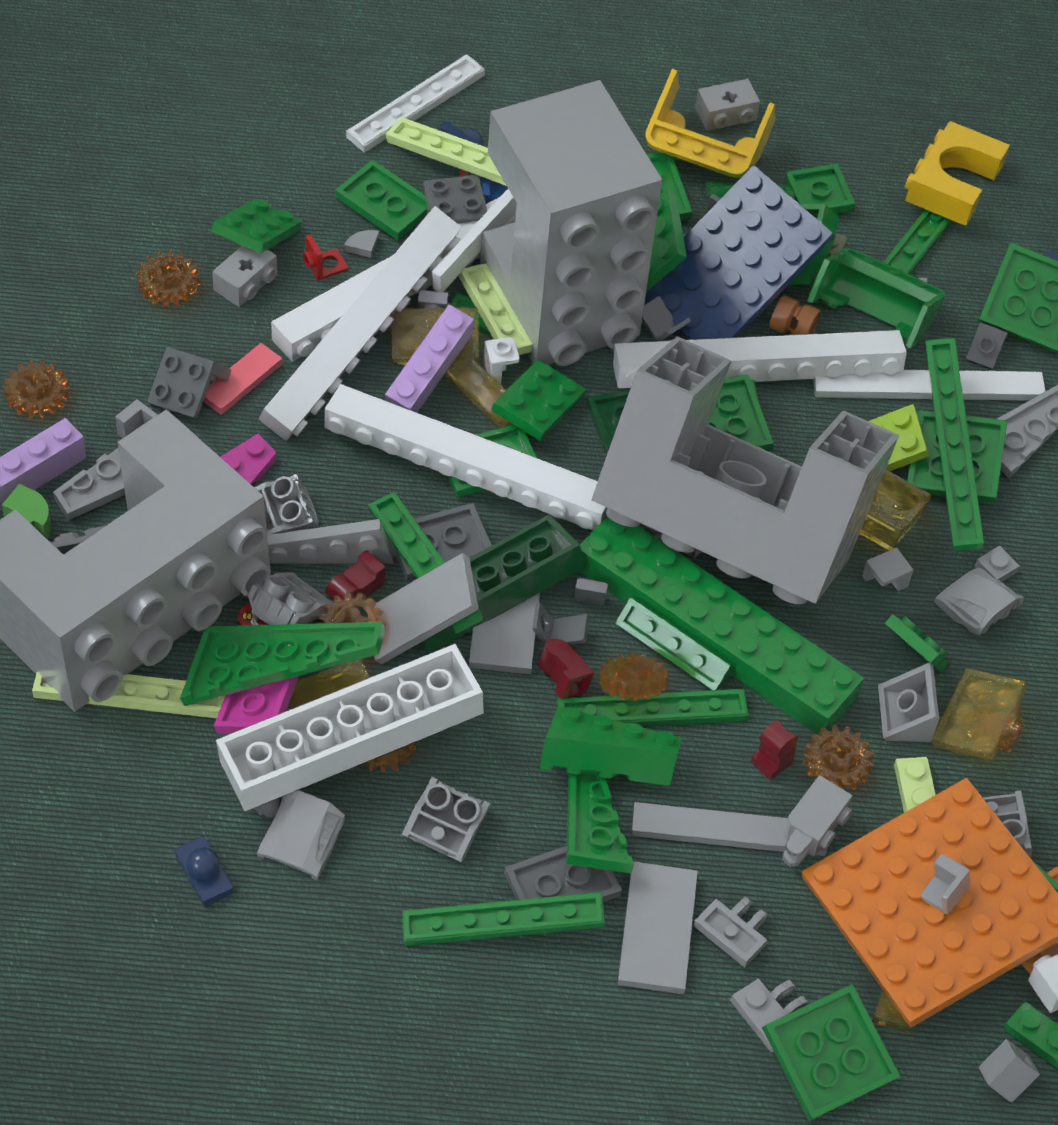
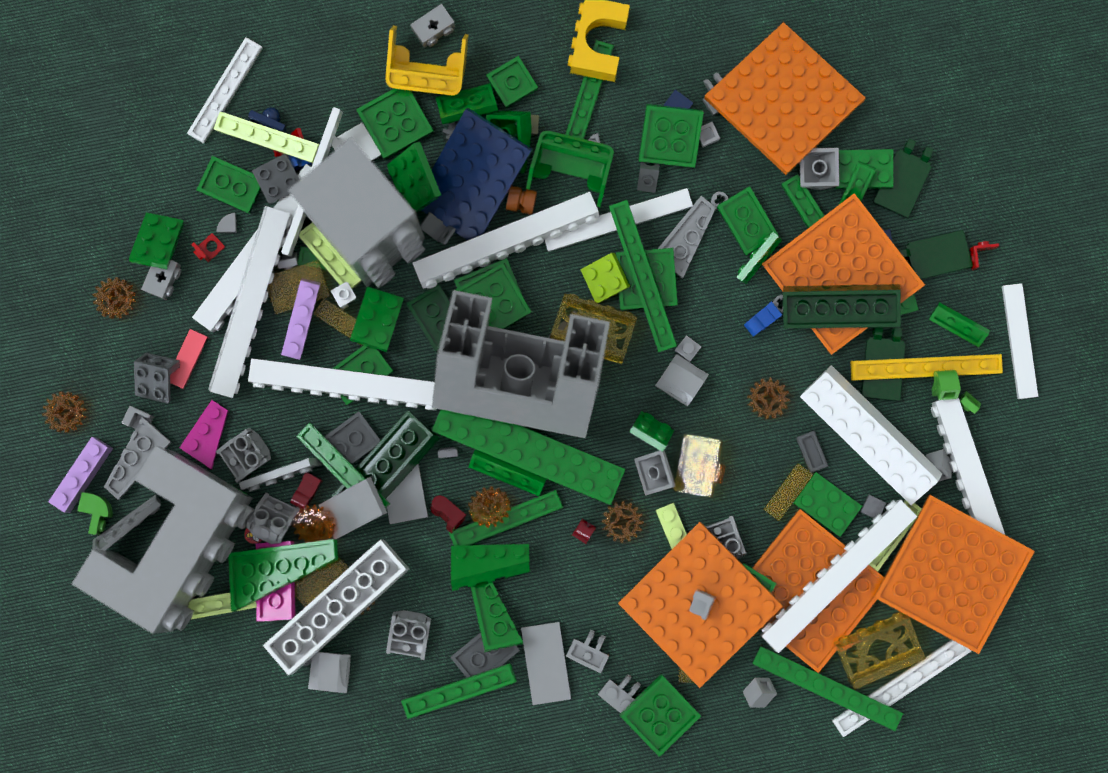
camera: 15 degrees left, 30 degrees up
(204, 871) = (282, 709): dark blue tile -> none
(569, 629) = (437, 484): dark grey bracket -> none
(710, 827) = (570, 586): light grey tile -> none
(814, 820) = (618, 572): light grey hinge -> none
(889, 568) = (622, 379): light grey panel -> none

